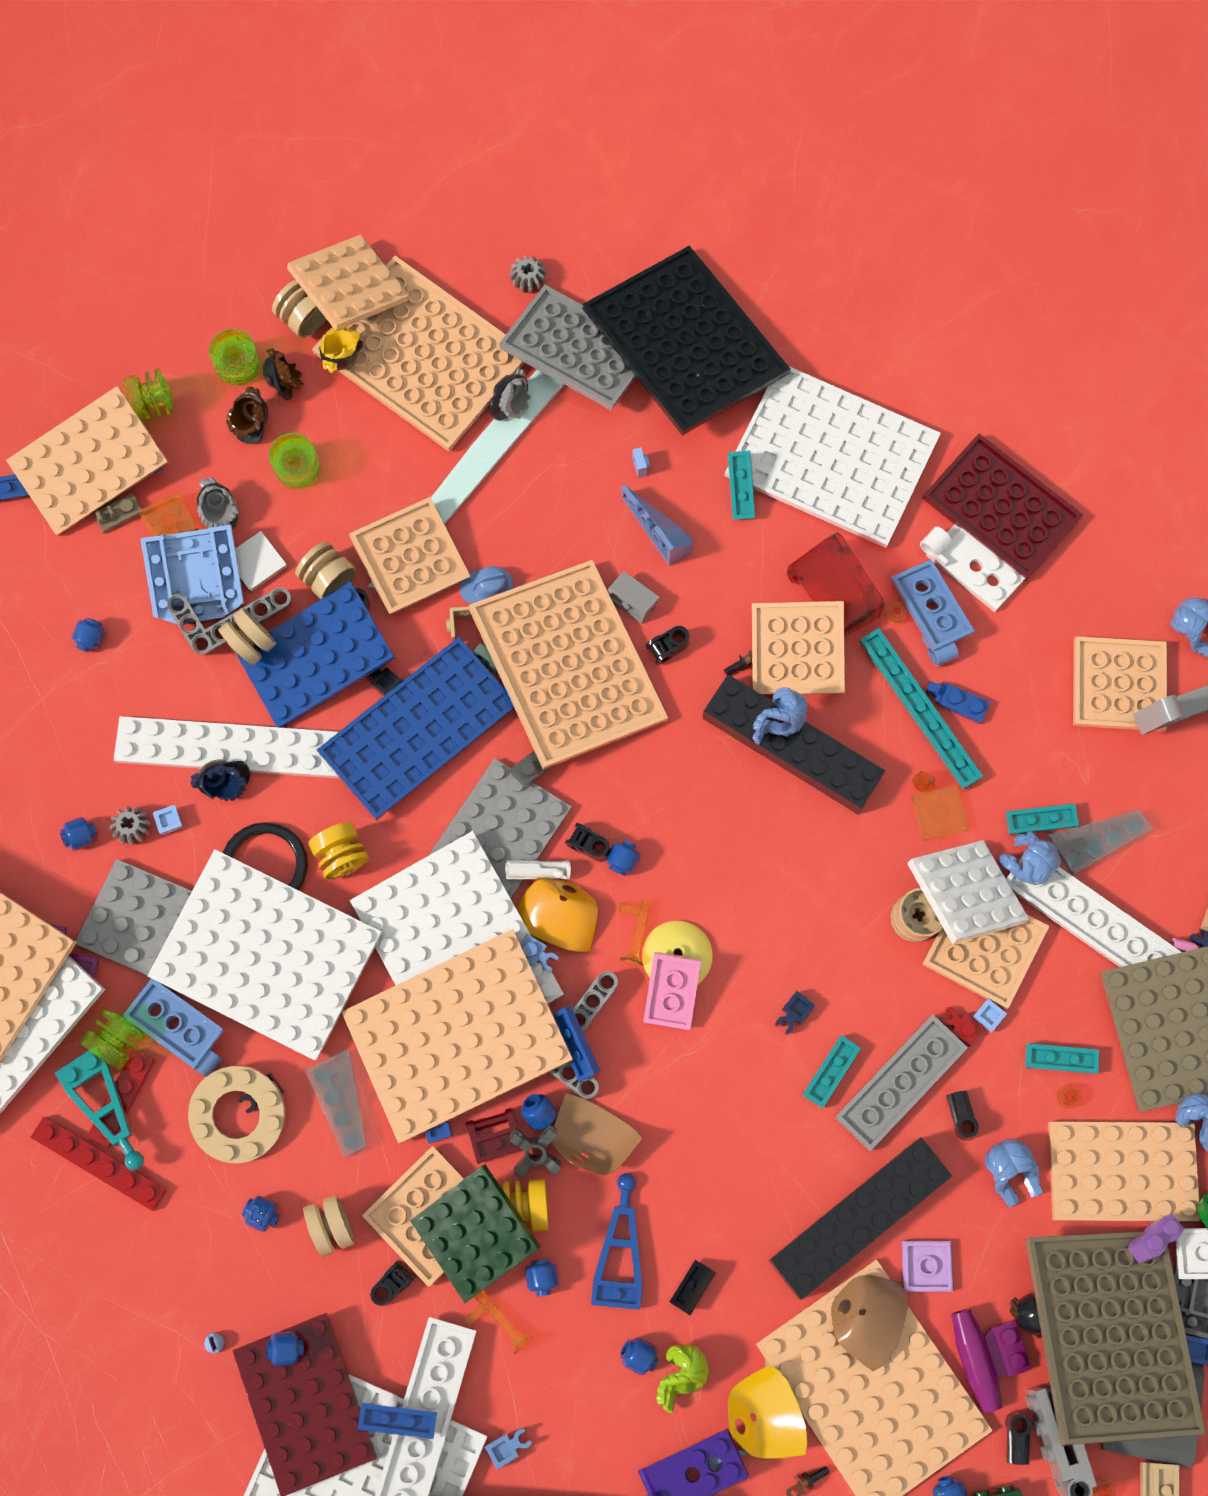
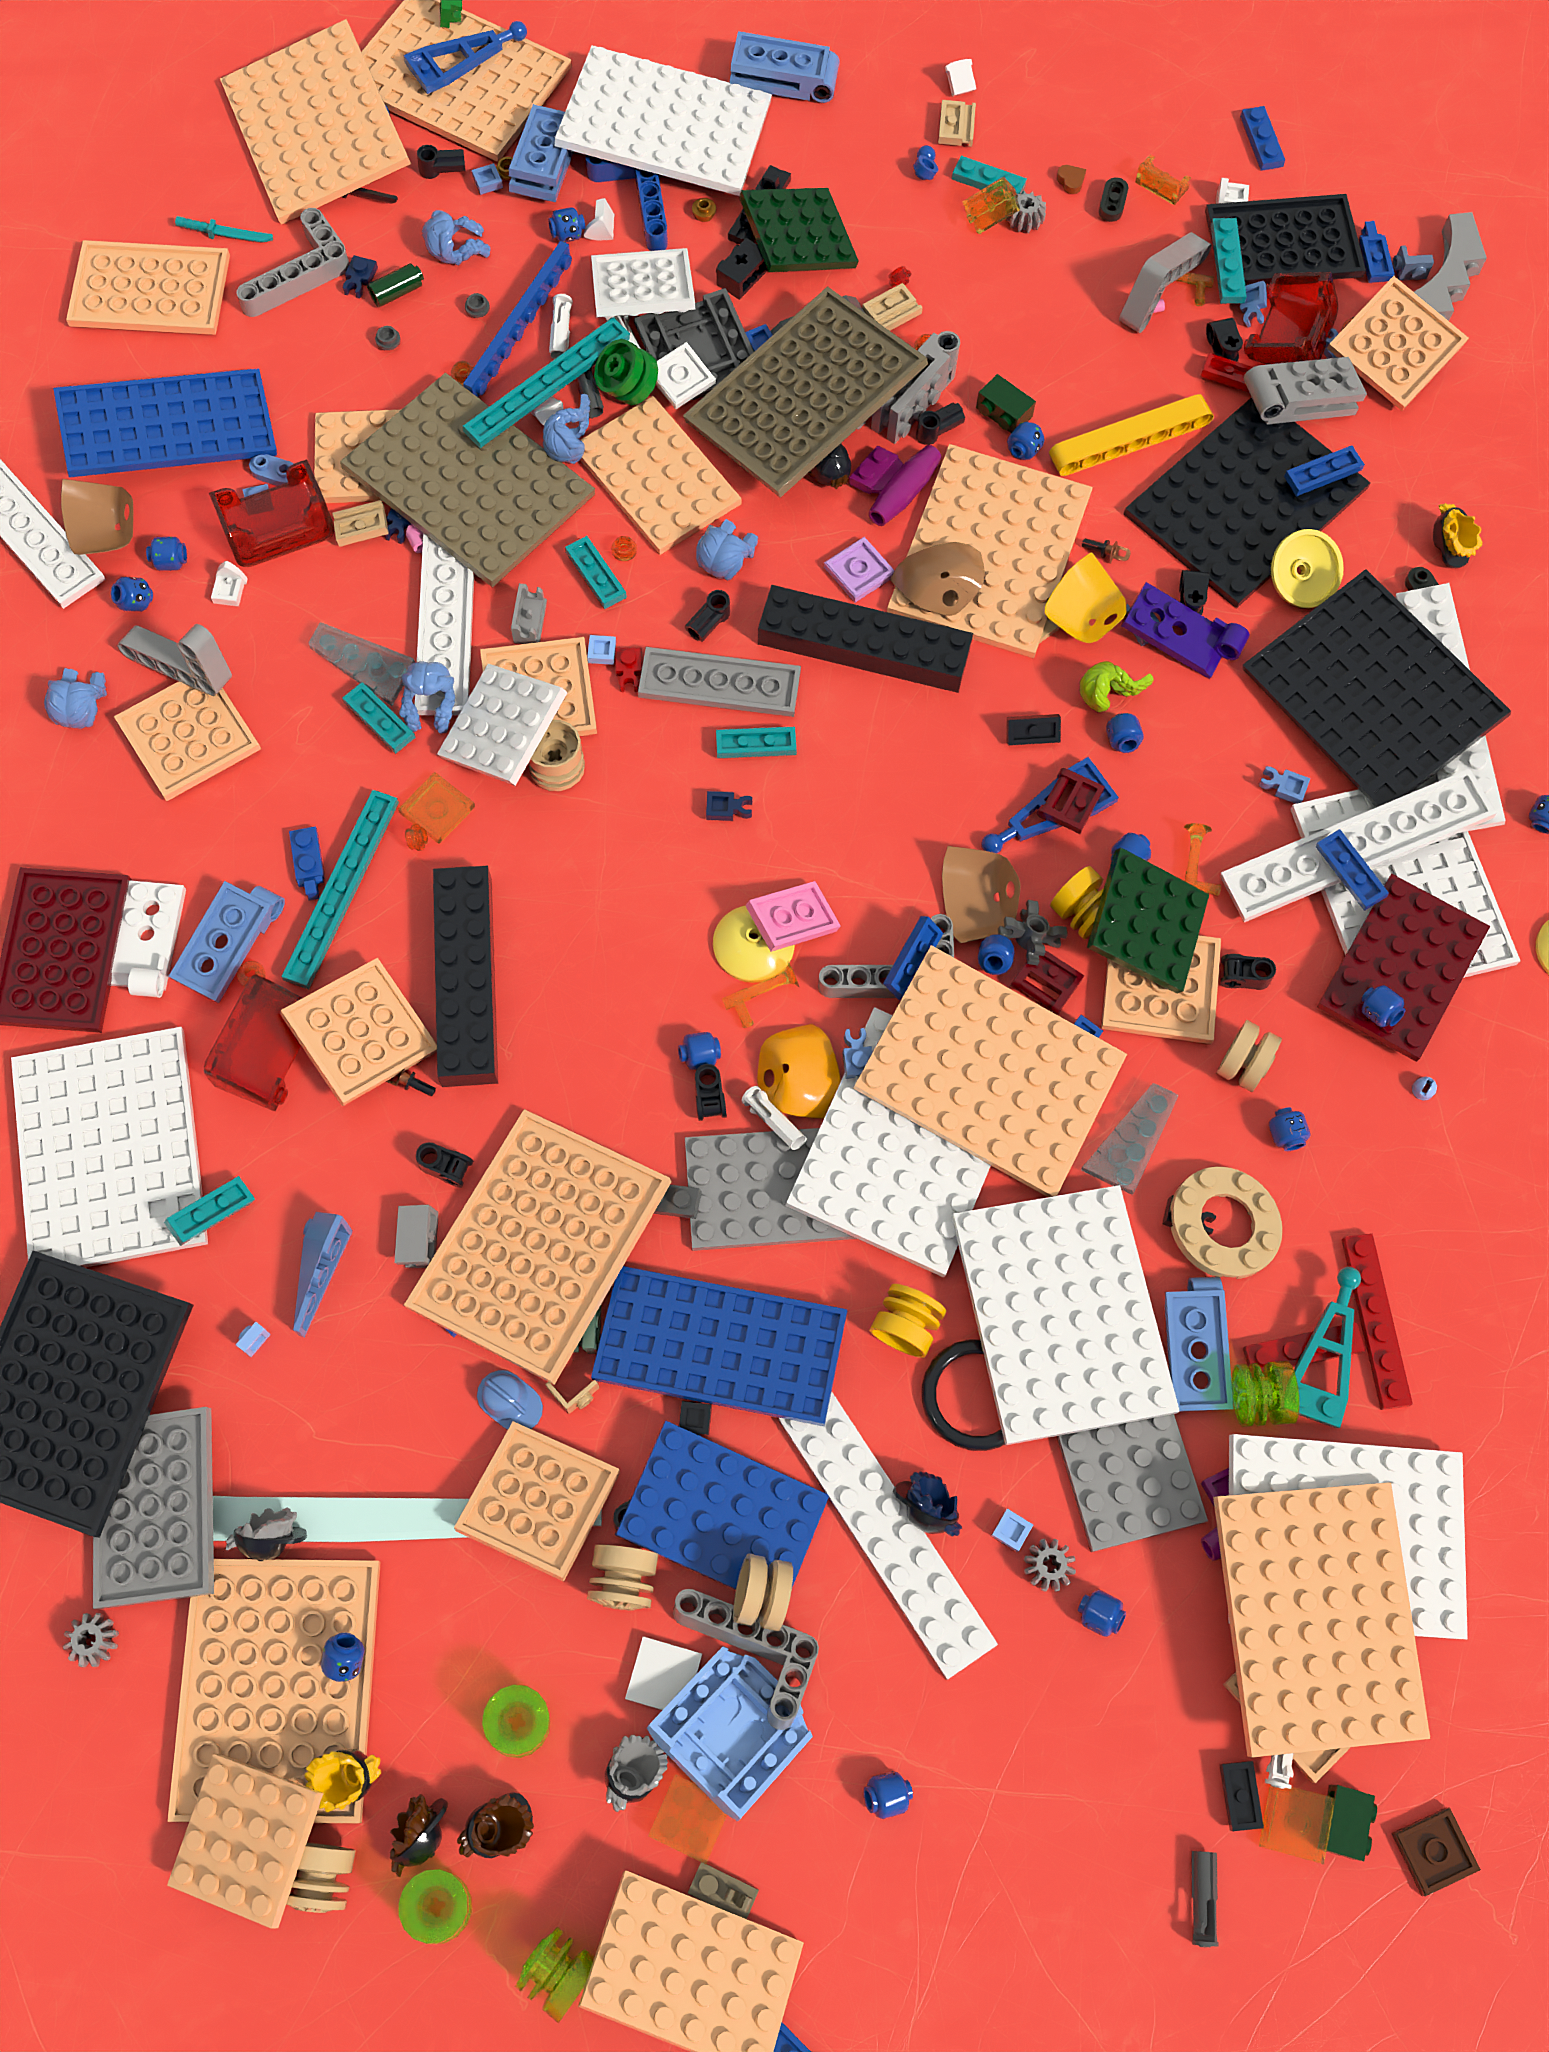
camera: 130 degrees left, 5 degrees down
(405, 390) = (342, 1657): none -> blue head
(604, 1264) = (1078, 805): none -> dark red plate
(791, 710) = (439, 972): medium blue hair -> none
(1056, 982) = (528, 615): none -> light grey hinge
(1155, 1238) = (698, 409): medium lavender brick -> none

